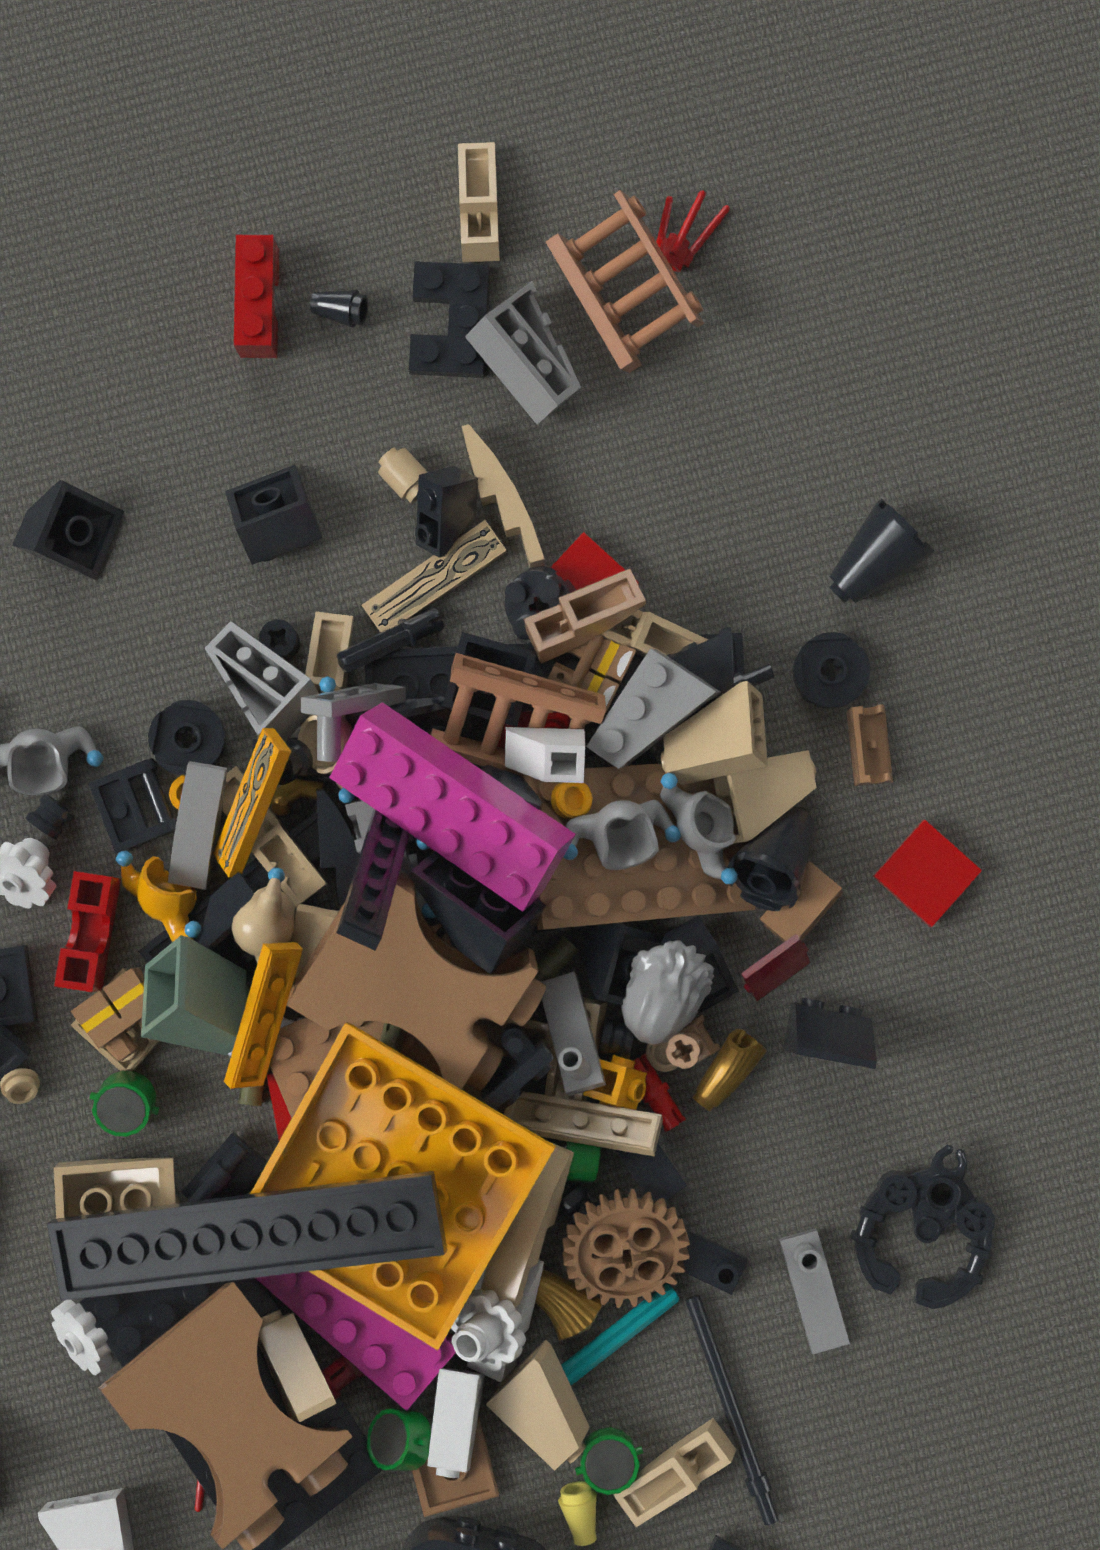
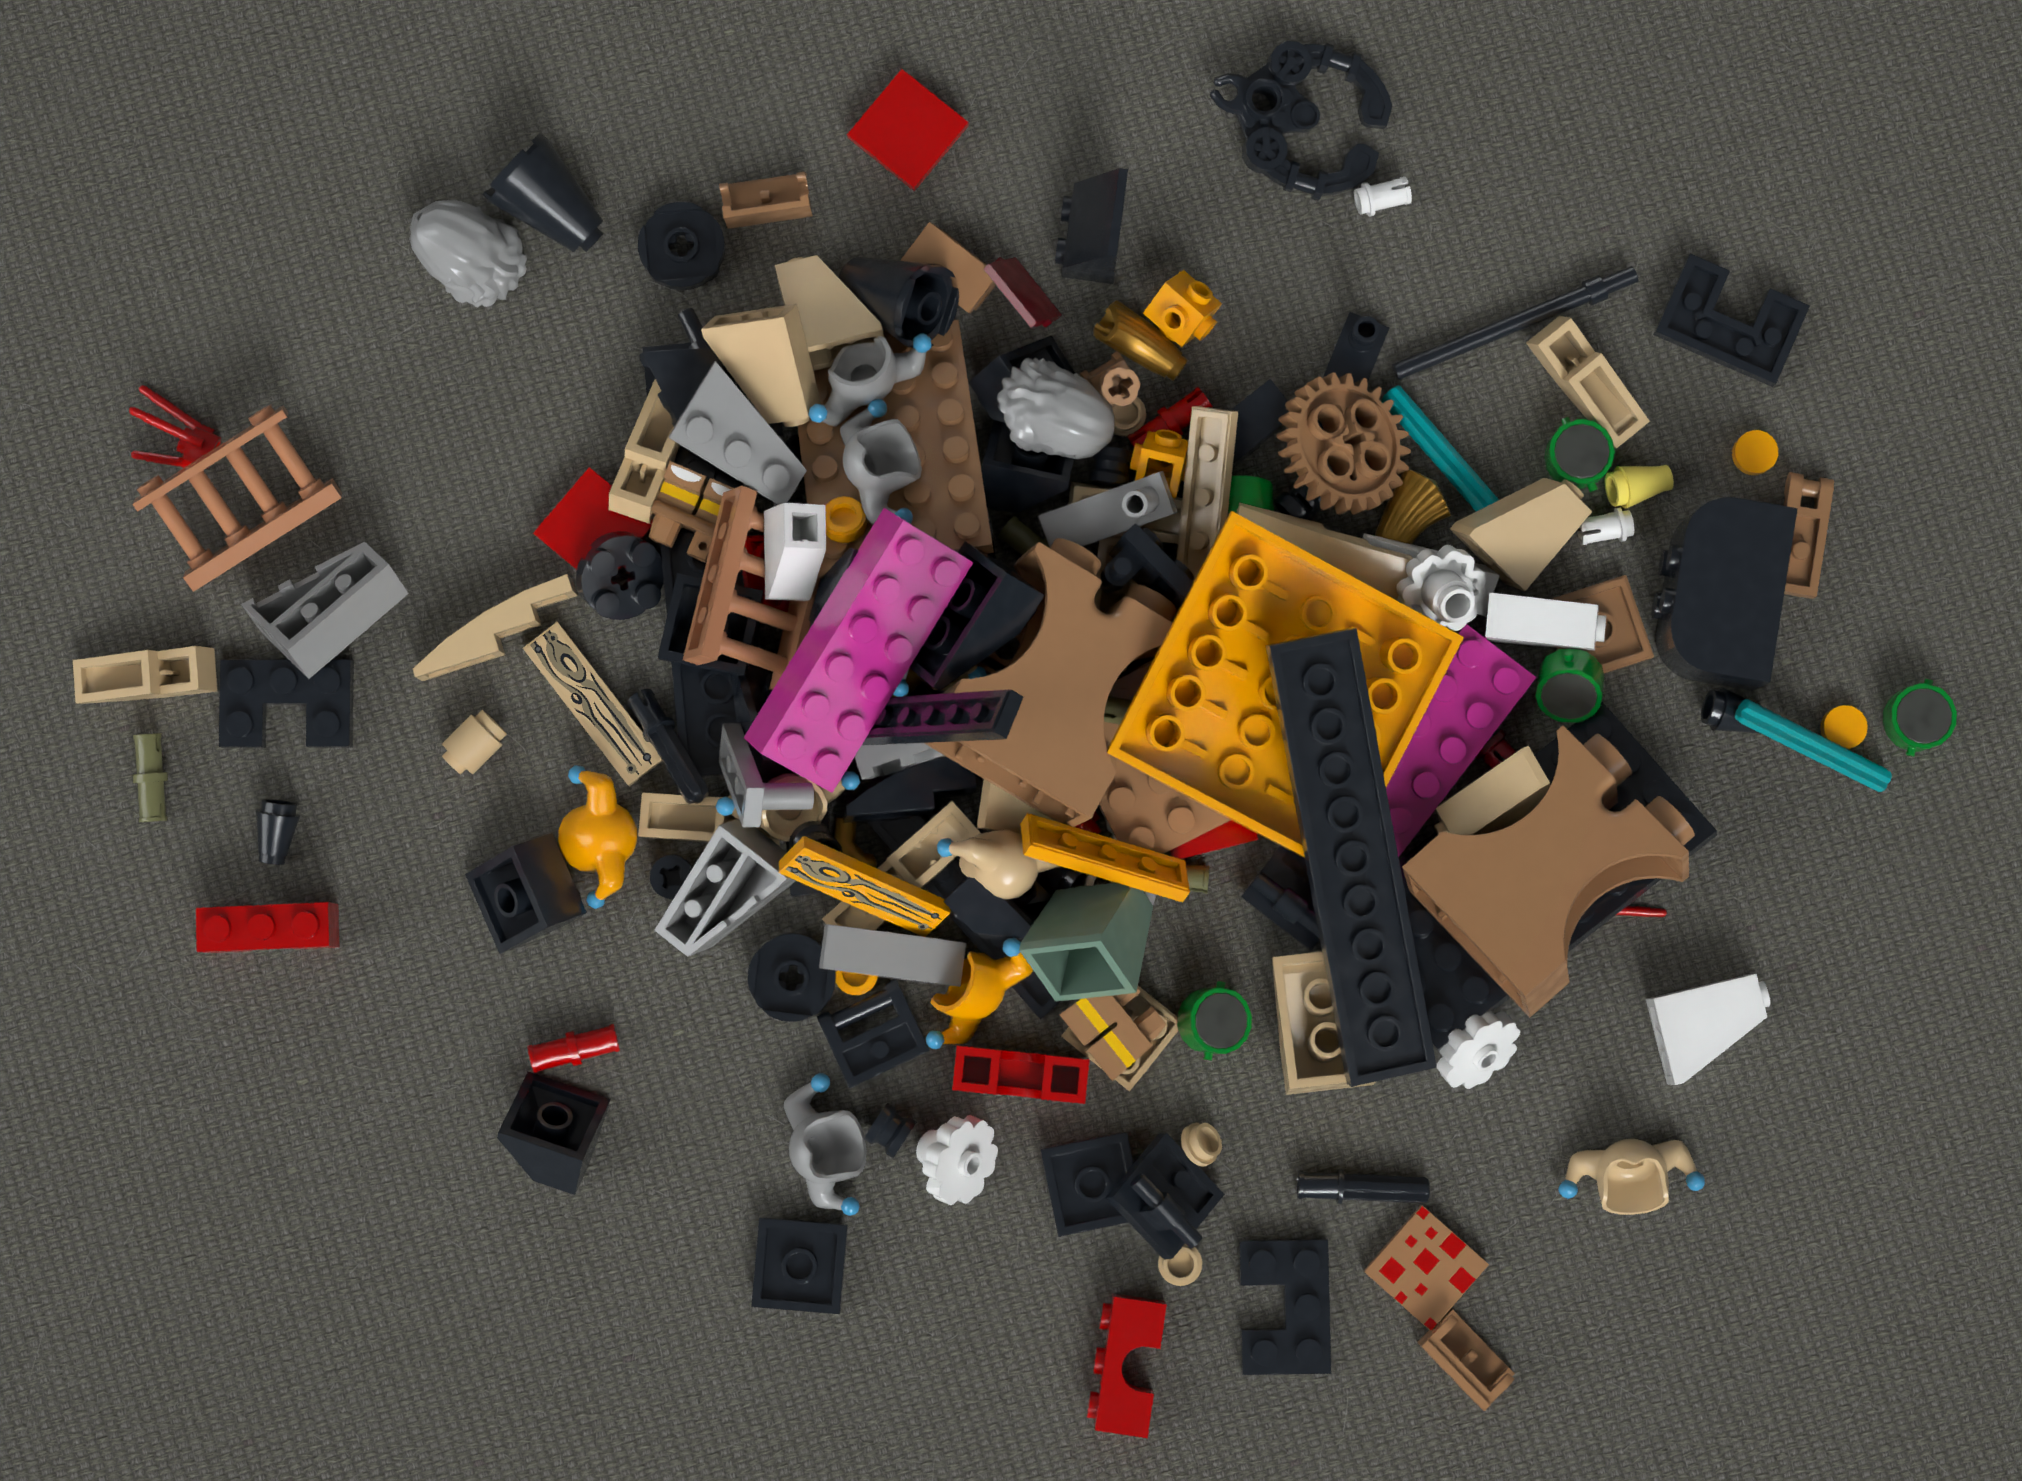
camera: 90 degrees left, 0 degrees up
(139, 549) = (573, 1048): none -> red pin
(318, 577) = (598, 834): none -> light orange piece
(391, 203) = (150, 777): none -> olive pin
(444, 508) = (512, 693): black slope -> none
(543, 1482) = (1606, 527): none -> white pin
(584, 615) = (632, 519): medium nougat slope -> none
(754, 1110) = (1183, 309): none -> light orange brick
(814, 1291) = (1380, 238): light grey piece -> none
(833, 486) = (468, 251): none -> light grey piece
(851, 1295) = (1382, 196): none -> white pin

